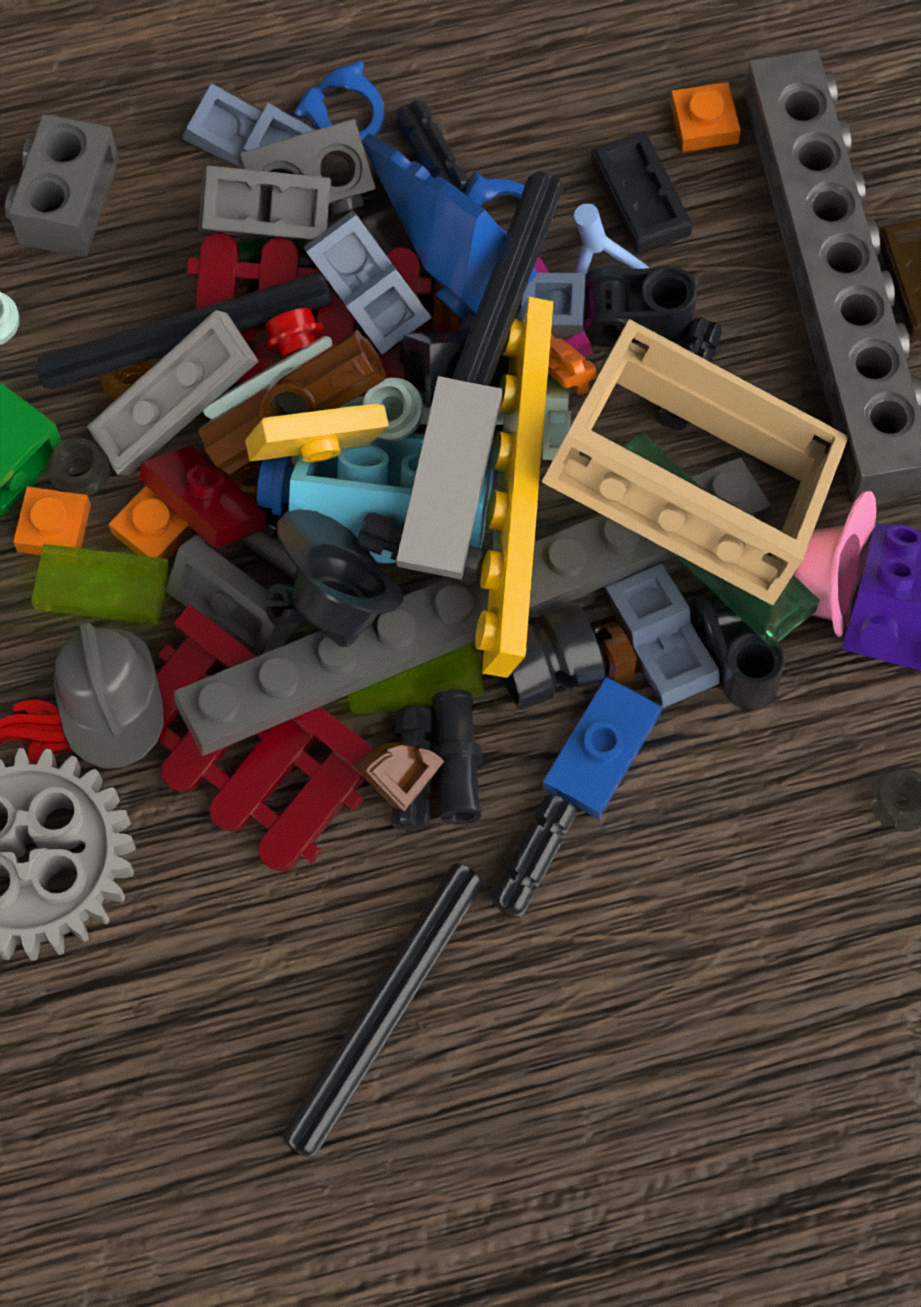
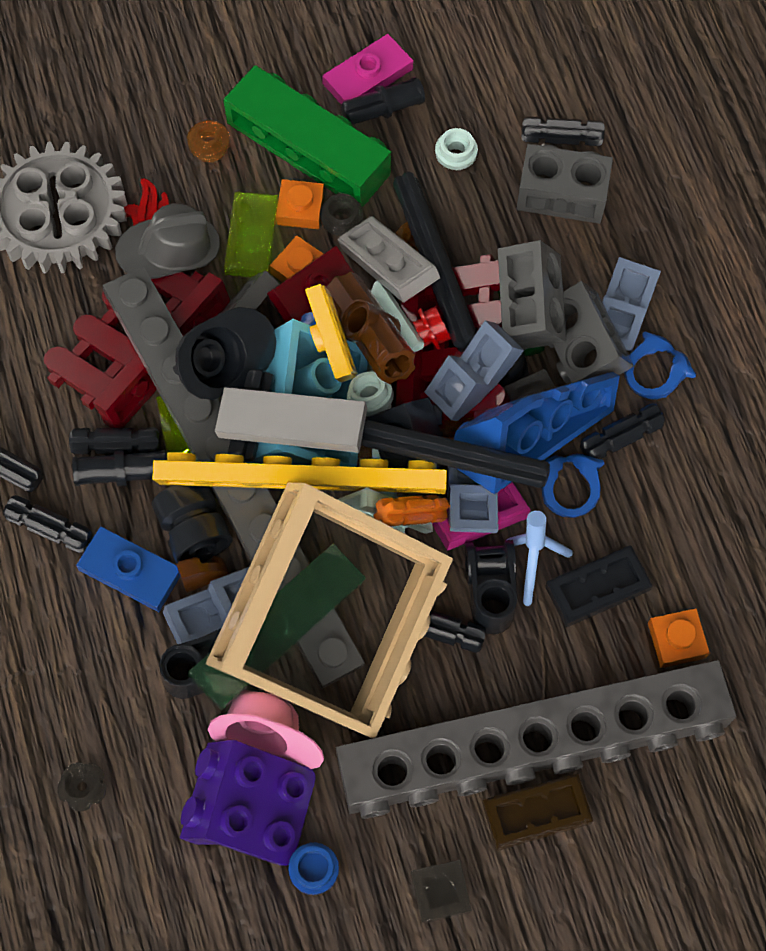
camera: 85 degrees right, 0 degrees up
(398, 771) = (96, 420): reddish brown tile -> none

